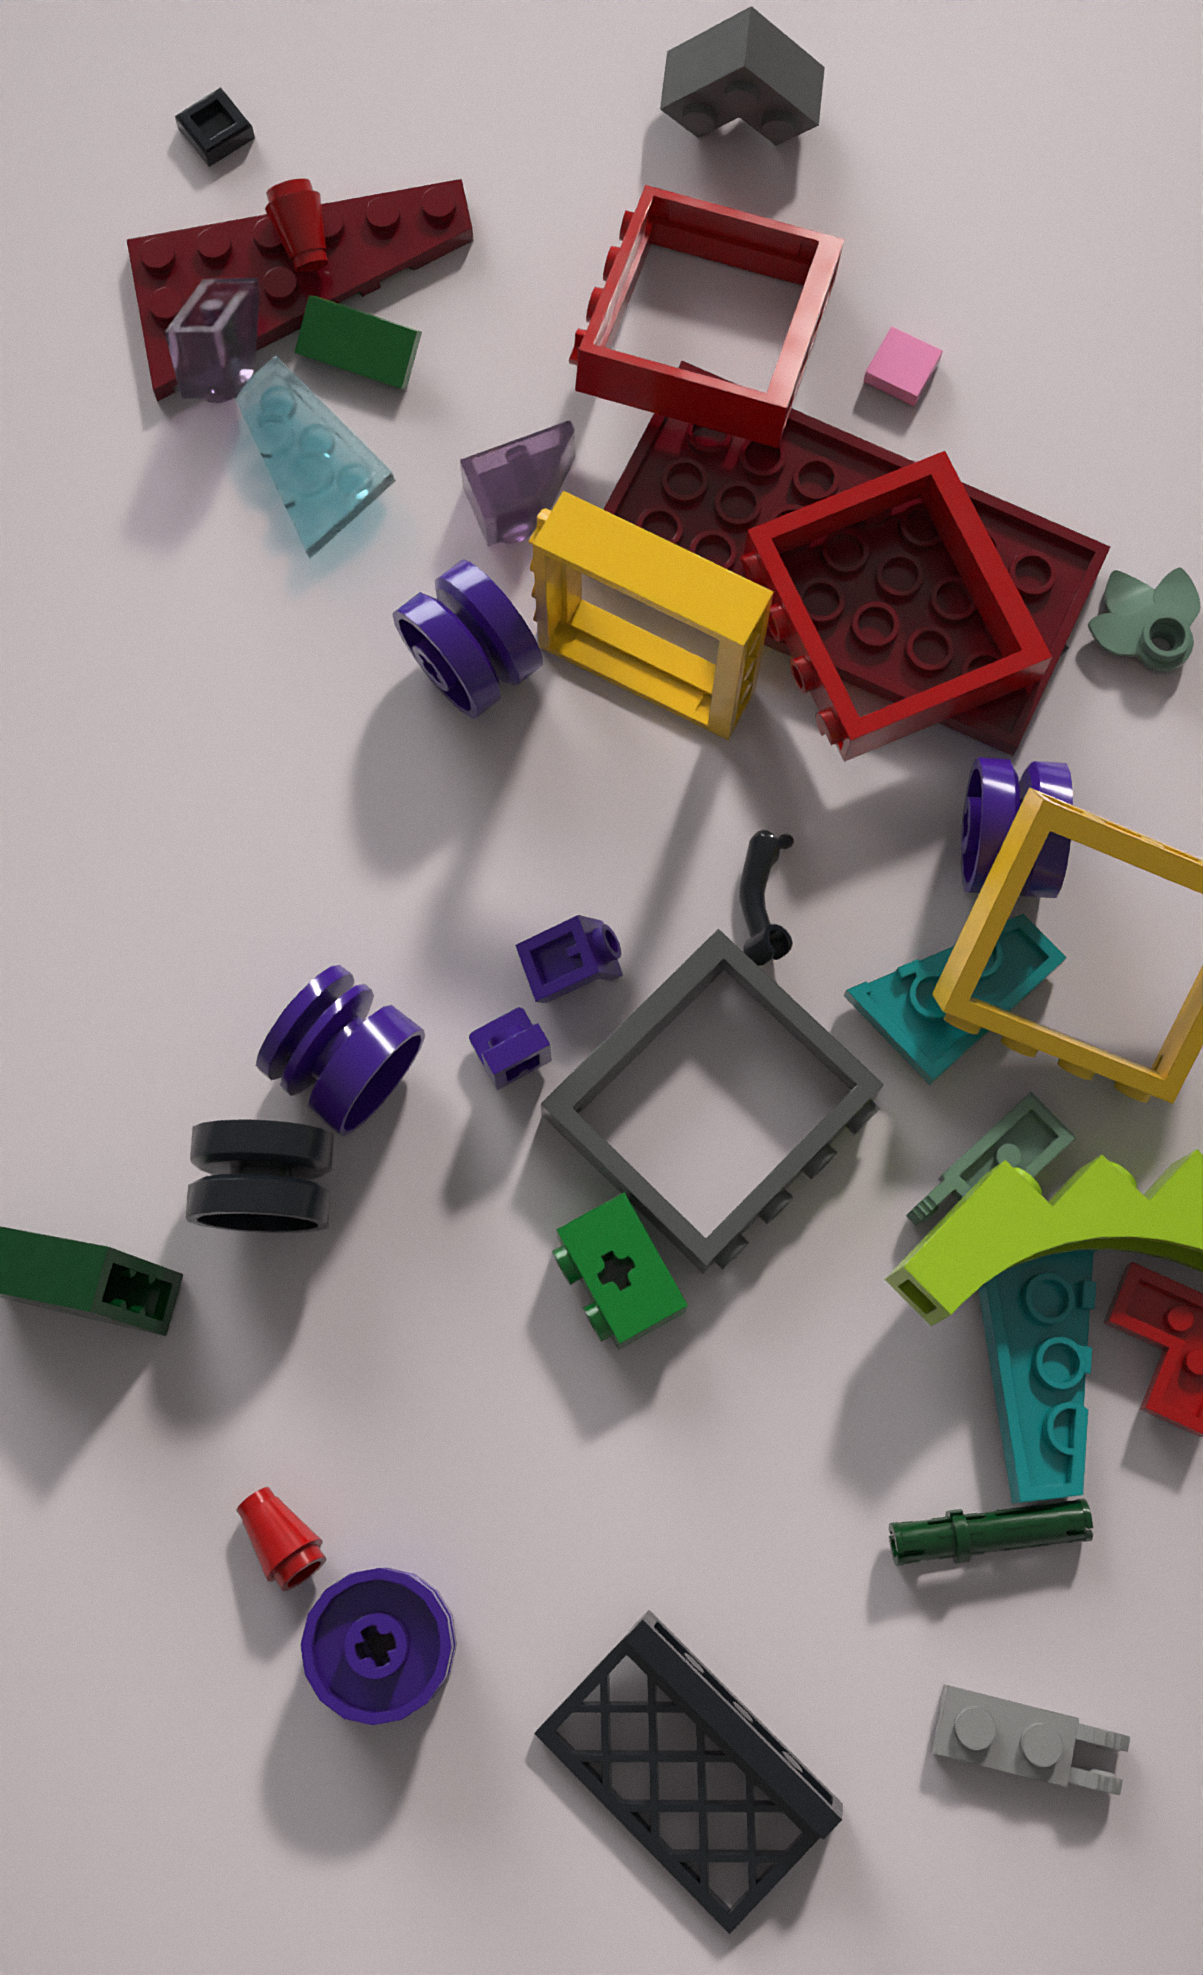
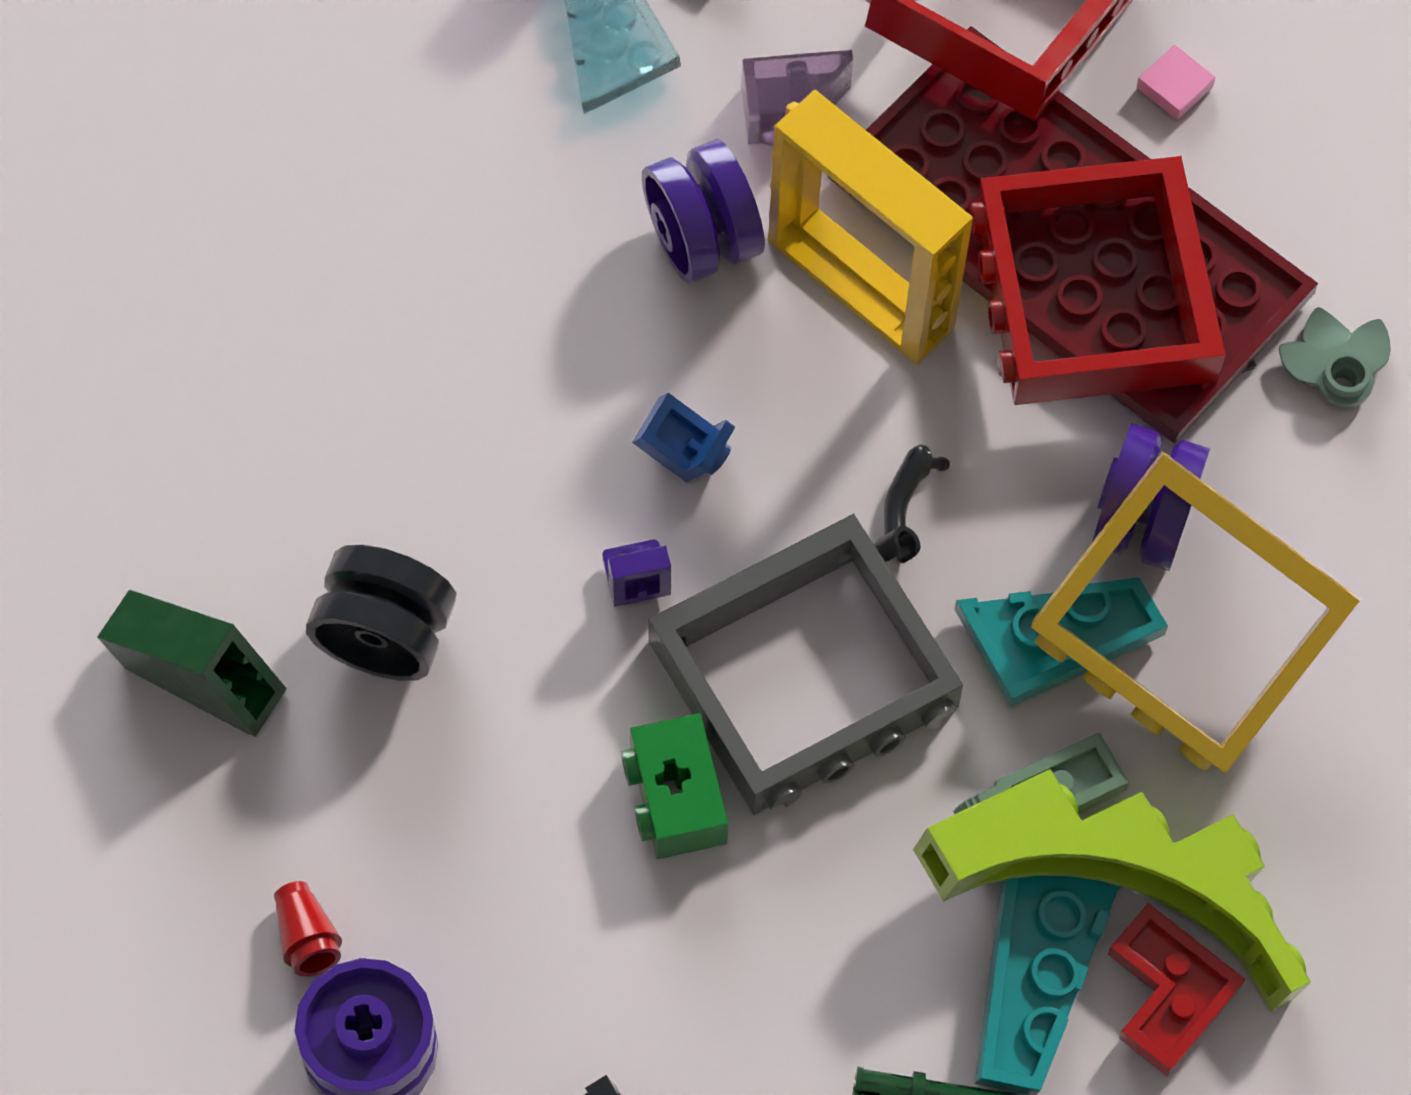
camera: 15 degrees right, 10 degrees down
(331, 1042) = (484, 526): dark purple wheel -> none
(518, 890) = (683, 439): none -> blue bracket
(569, 957) = (713, 508): dark purple bracket -> none

